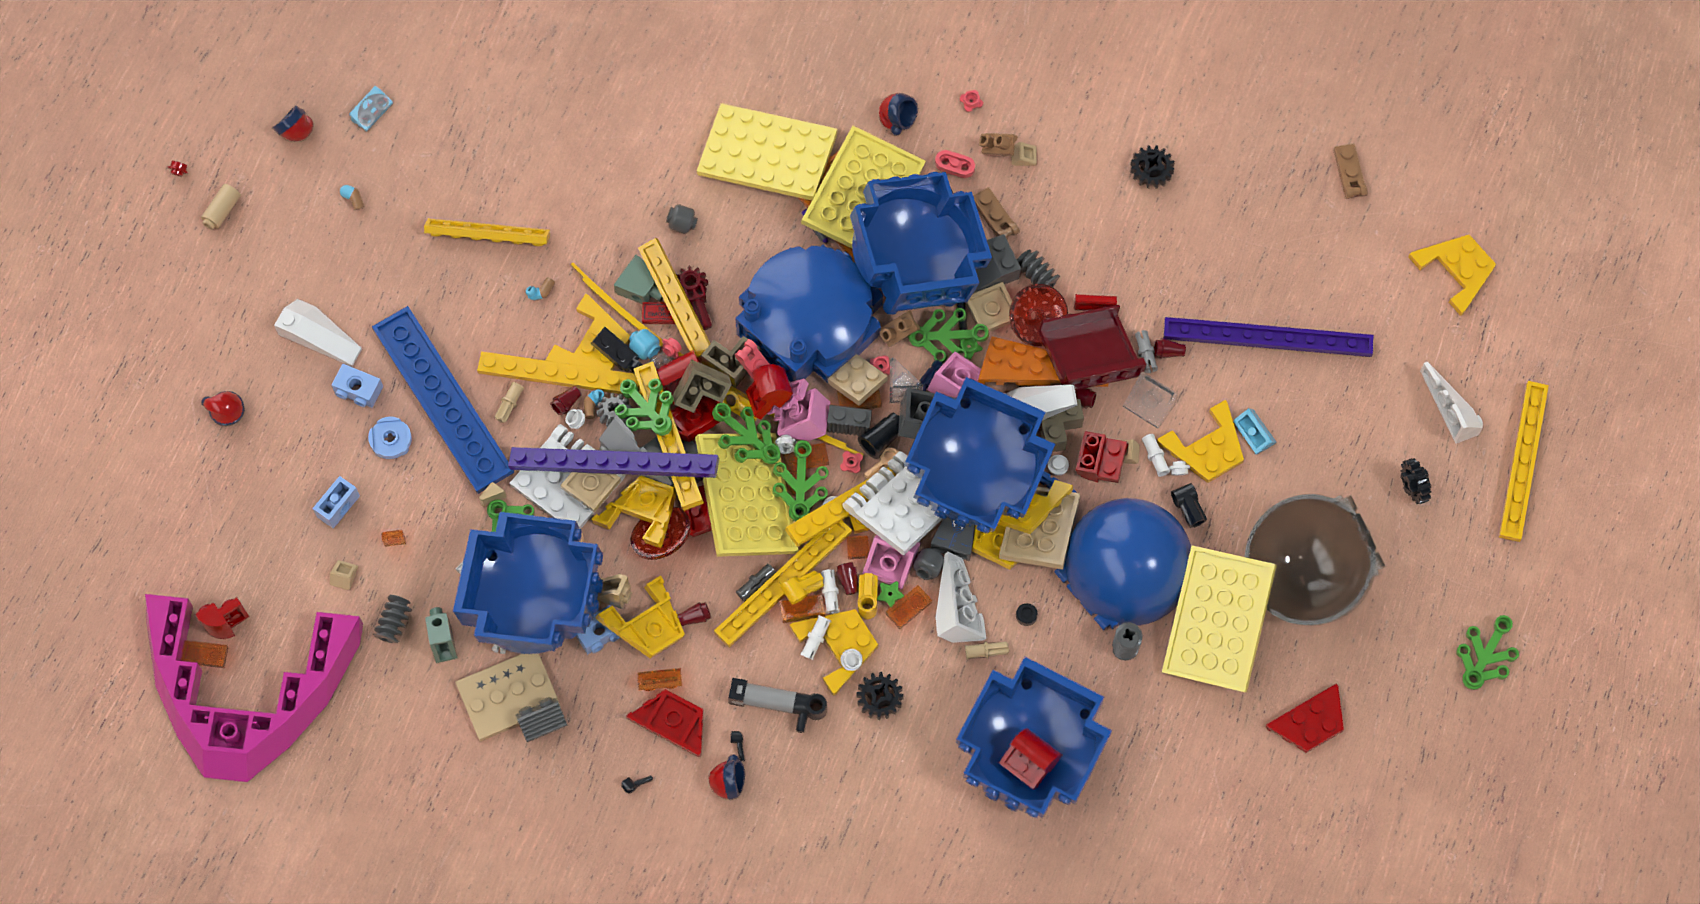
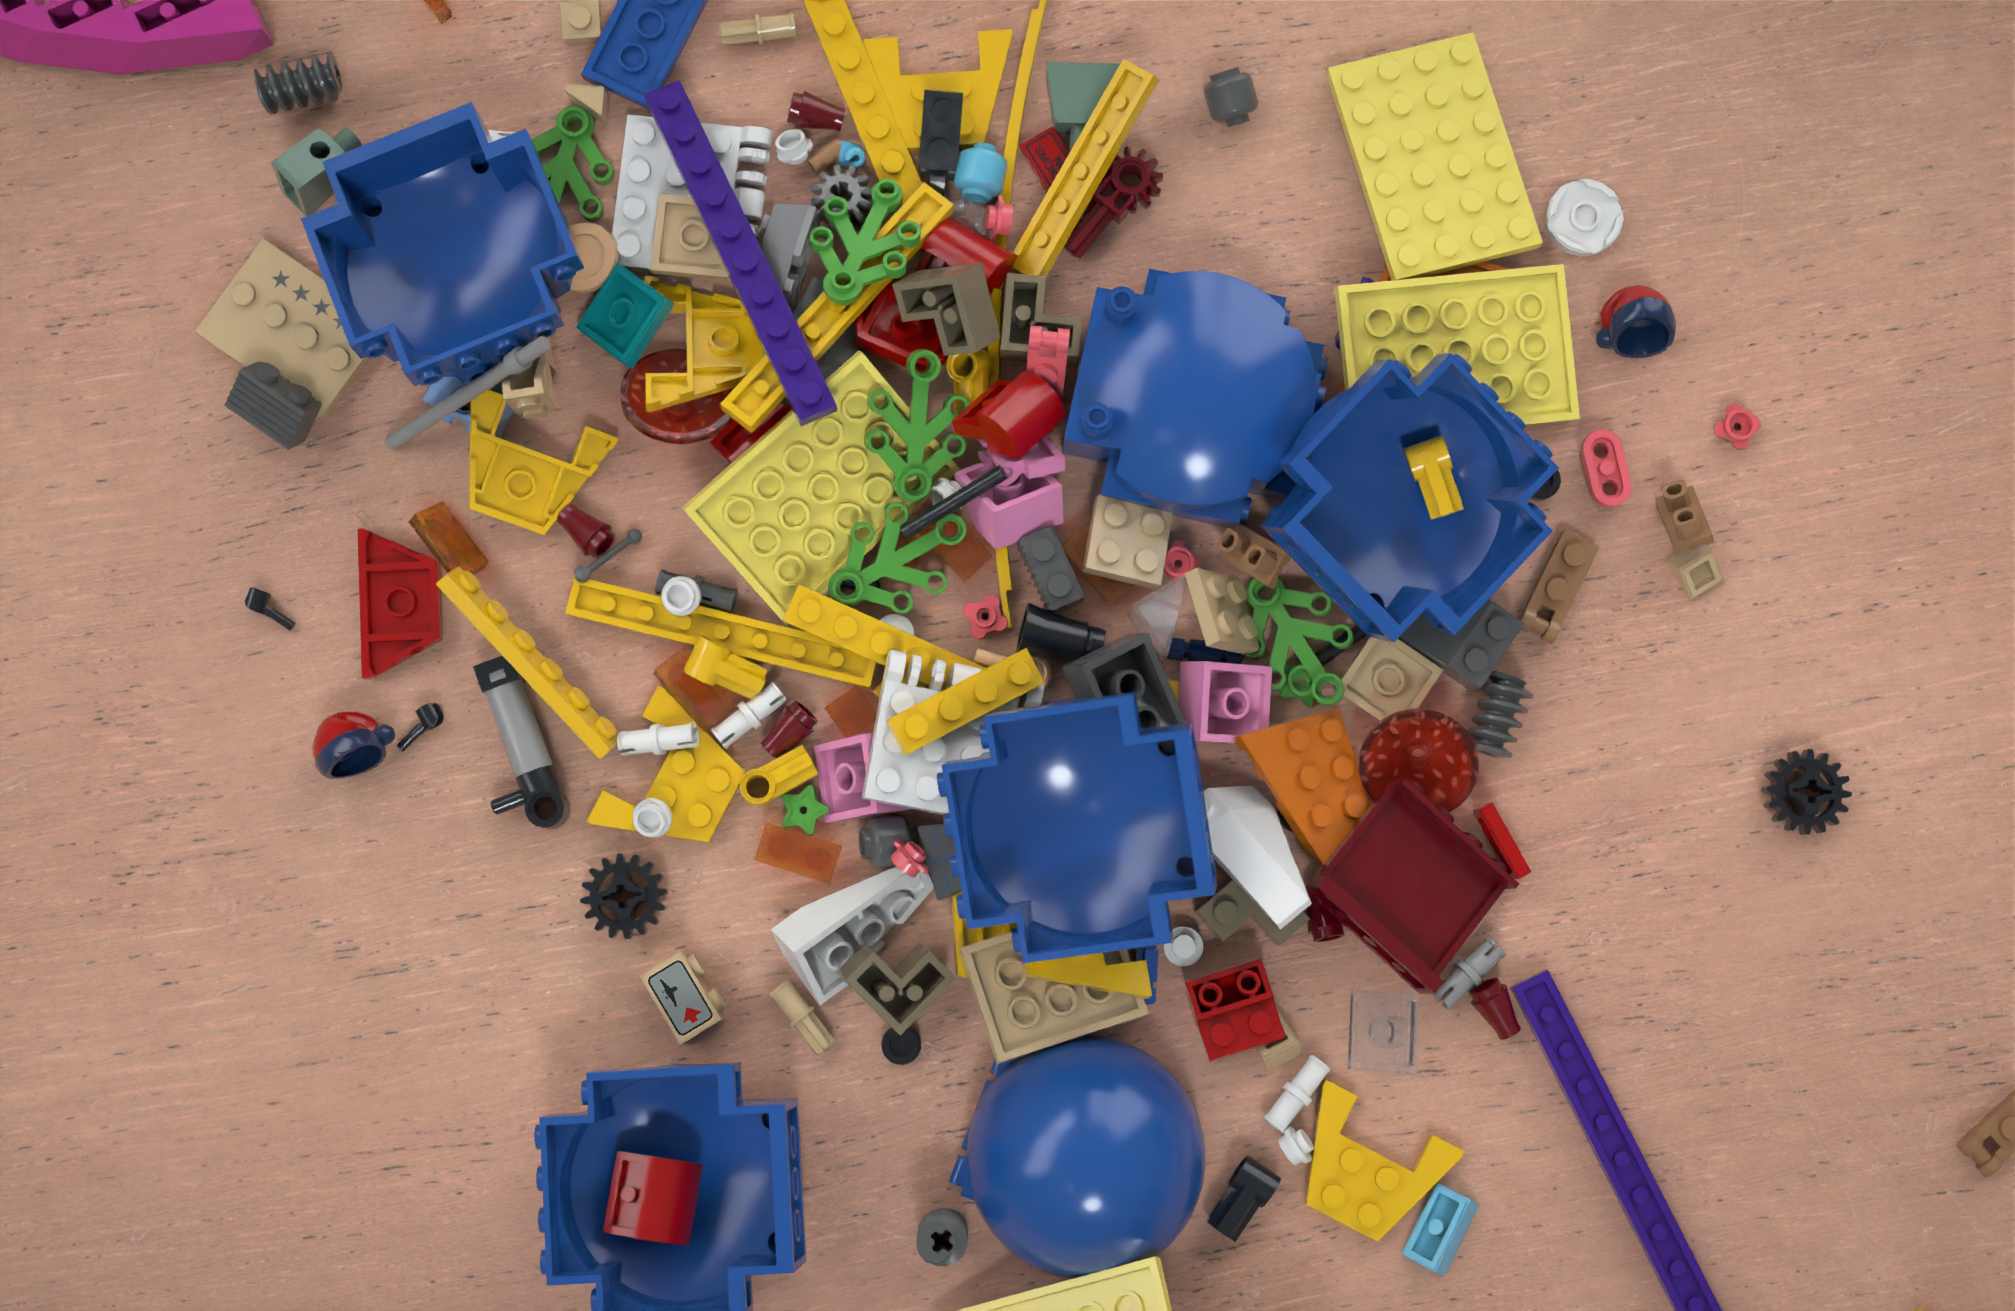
camera: 55 degrees right, 15 degrees up
(450, 479) = (581, 21): none -> tan plate
(605, 580) = (513, 362): none -> light grey bar
(607, 532) = (625, 315): none -> teal plate
(715, 625) = (582, 573): none -> dark grey hinge
(751, 668) = (520, 652): none -> yellow plate
(755, 585) = (681, 595): none -> white plate
(792, 438) = (953, 502): none -> black bar
(835, 108) = (1584, 217): none -> white tile
(888, 484) = (964, 701): none -> yellow plate
(910, 229) = (1432, 469): none -> yellow piece
(913, 354) = (1222, 611): none -> tan plate
(944, 552) = (910, 858): none -> coral plate
(944, 696) = (684, 996): none -> brick
(1000, 597) = (899, 993): none -> dark tan brick

